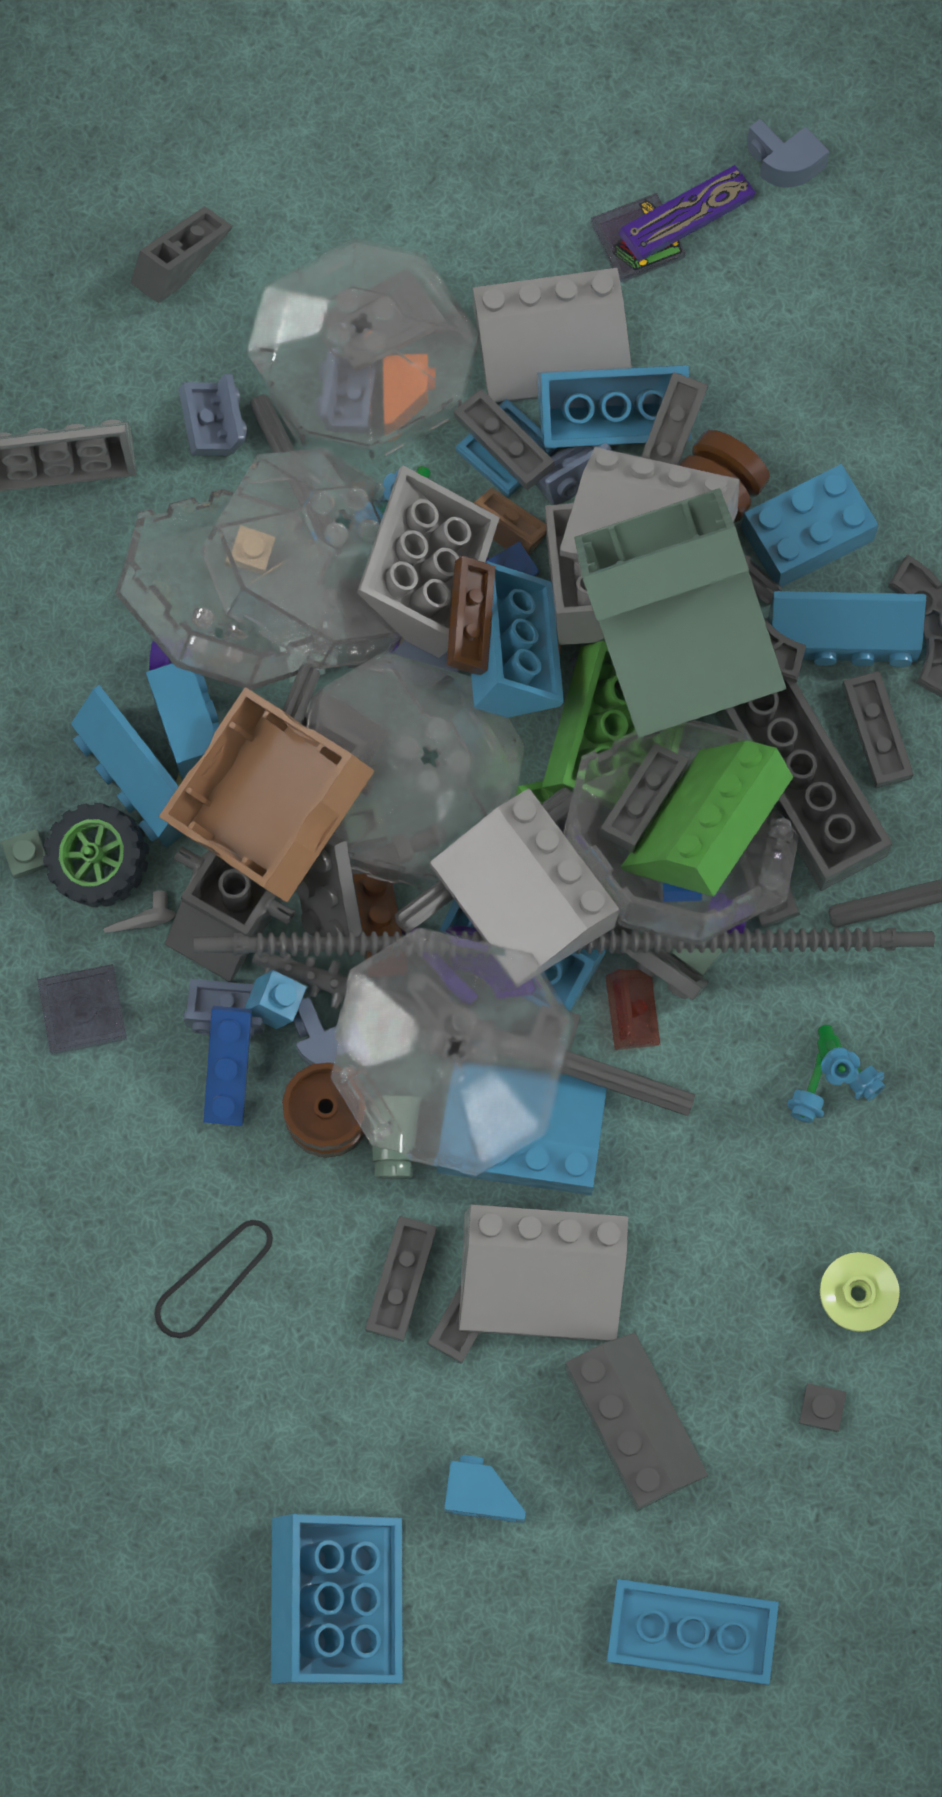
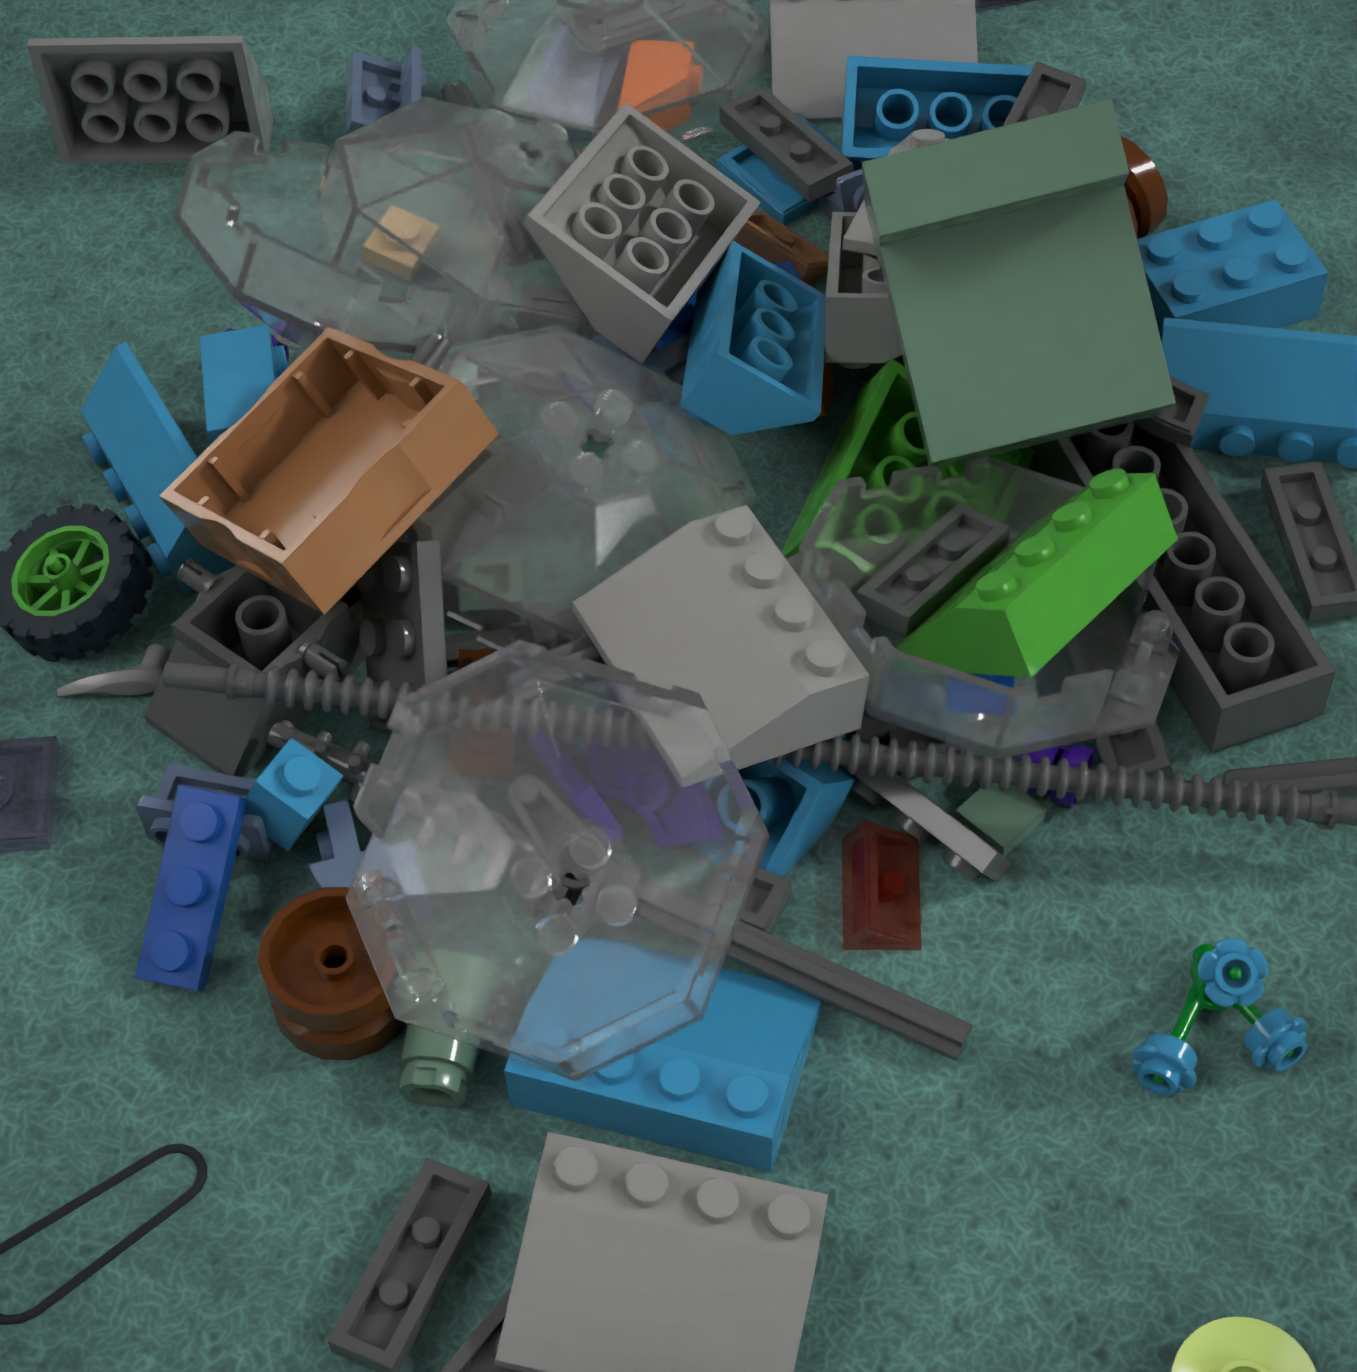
camera: 10 degrees right, 20 degrees down
(471, 615) = (693, 286): reddish brown plate -> none

